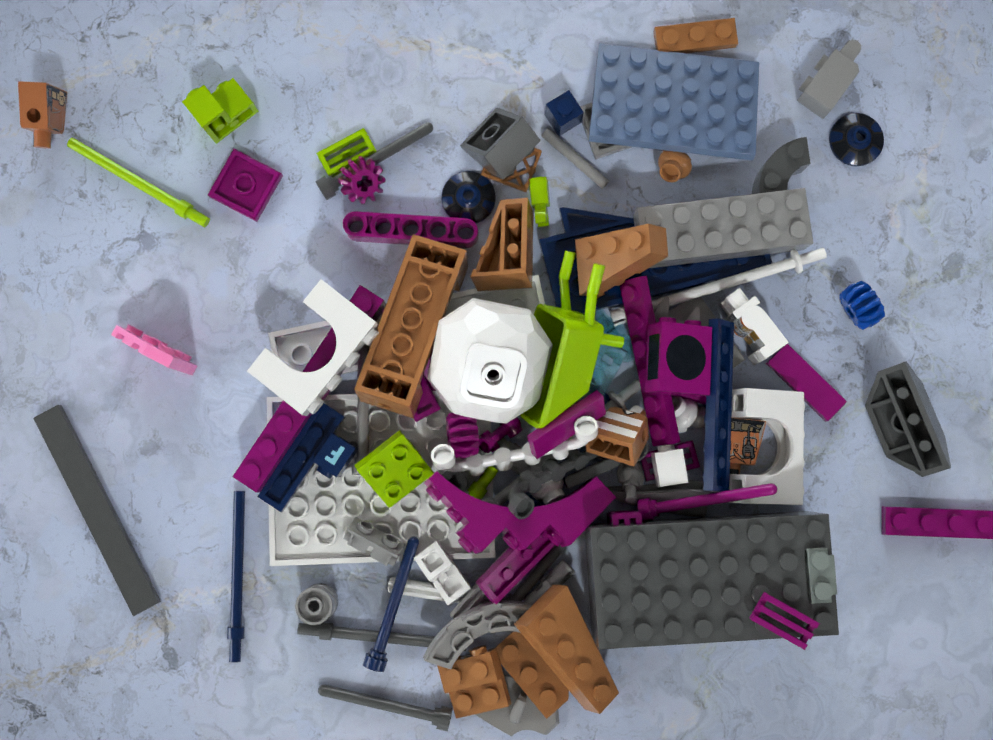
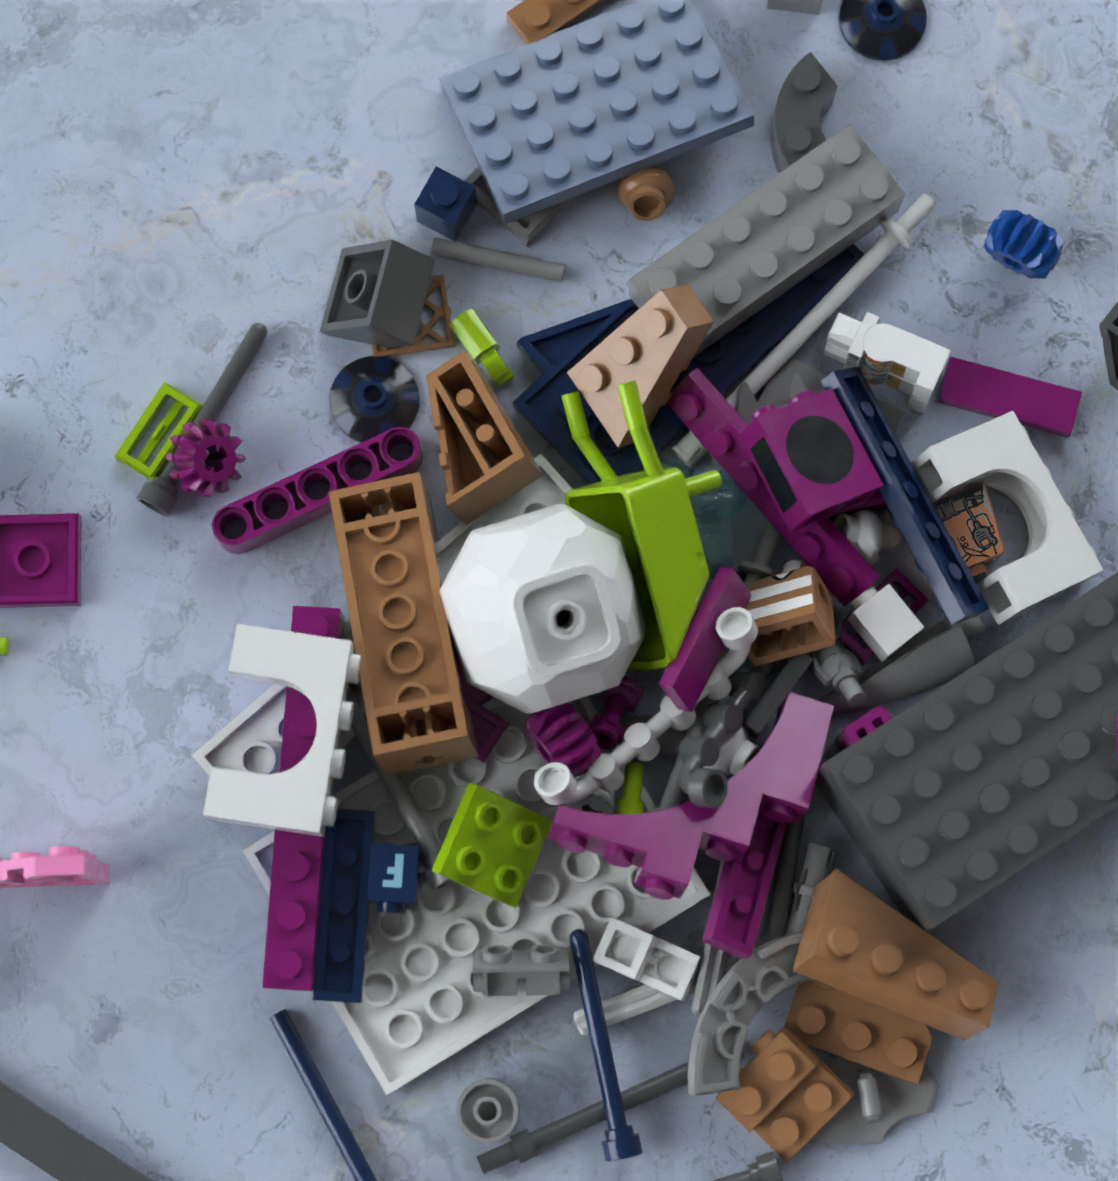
camera: 30 degrees left, 5 degrees down
(652, 508) = (895, 694): magenta piece -> none

